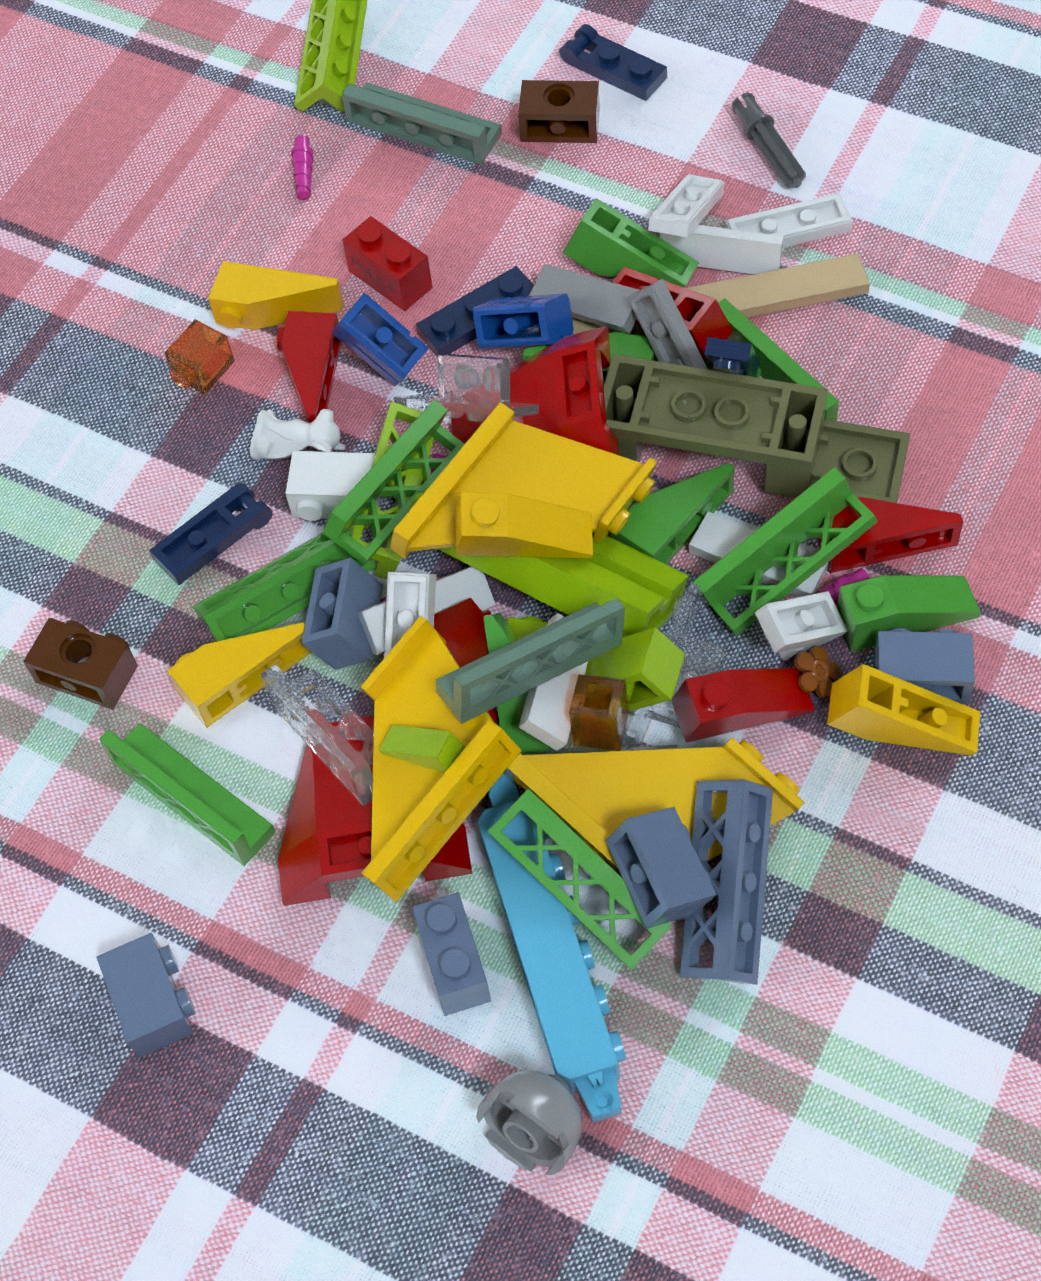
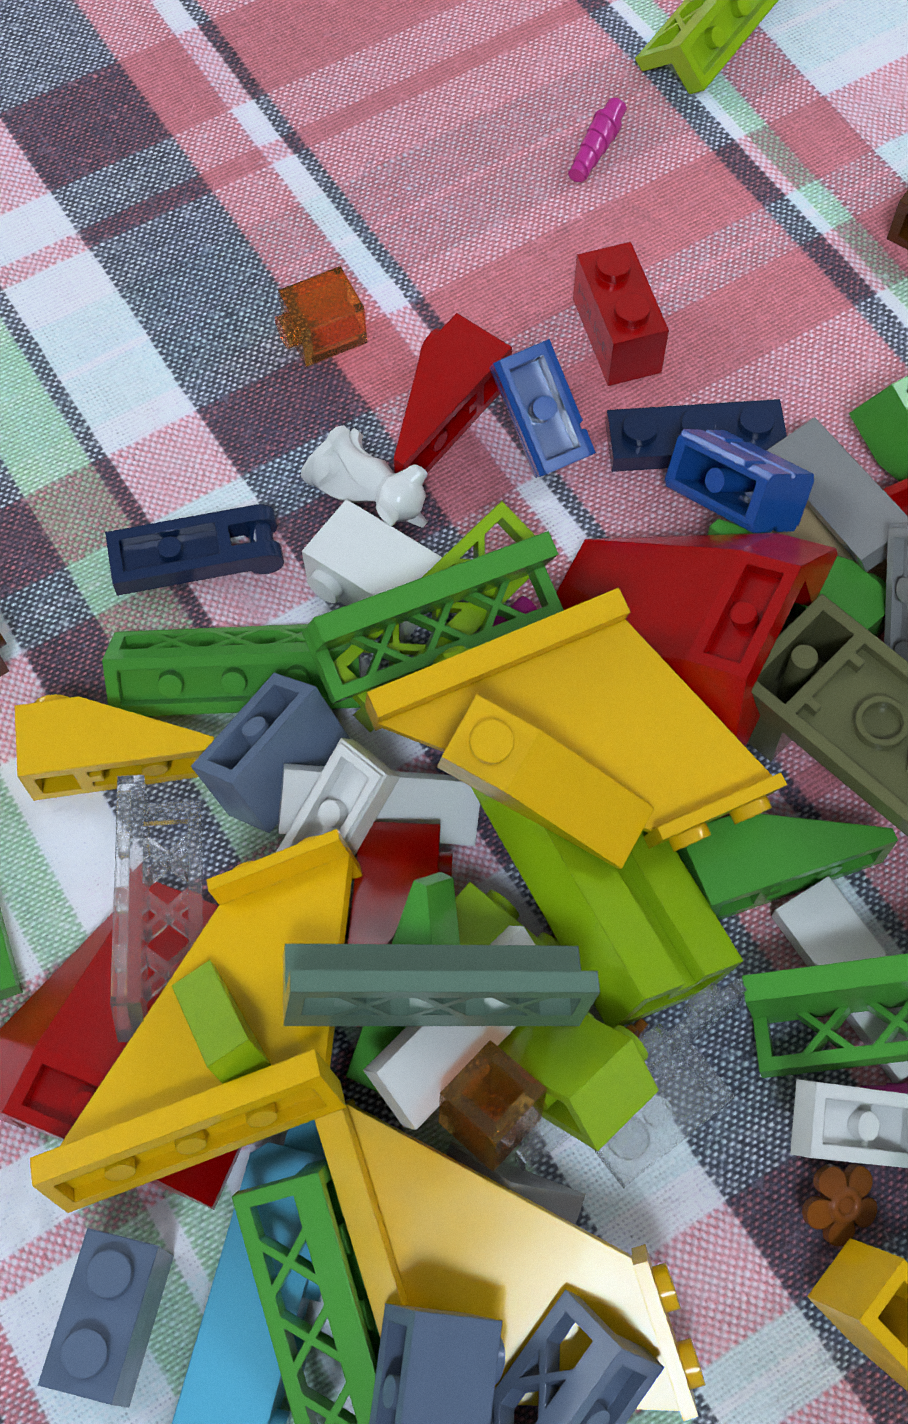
camera: 25 degrees right, 5 degrees up
(262, 296) = (443, 276): yellow slope -> none
(420, 122) = (776, 153): sand green fence -> none
(471, 387) = (611, 541): clear bracket -> none
(738, 701) = (705, 1192): red slope -> none

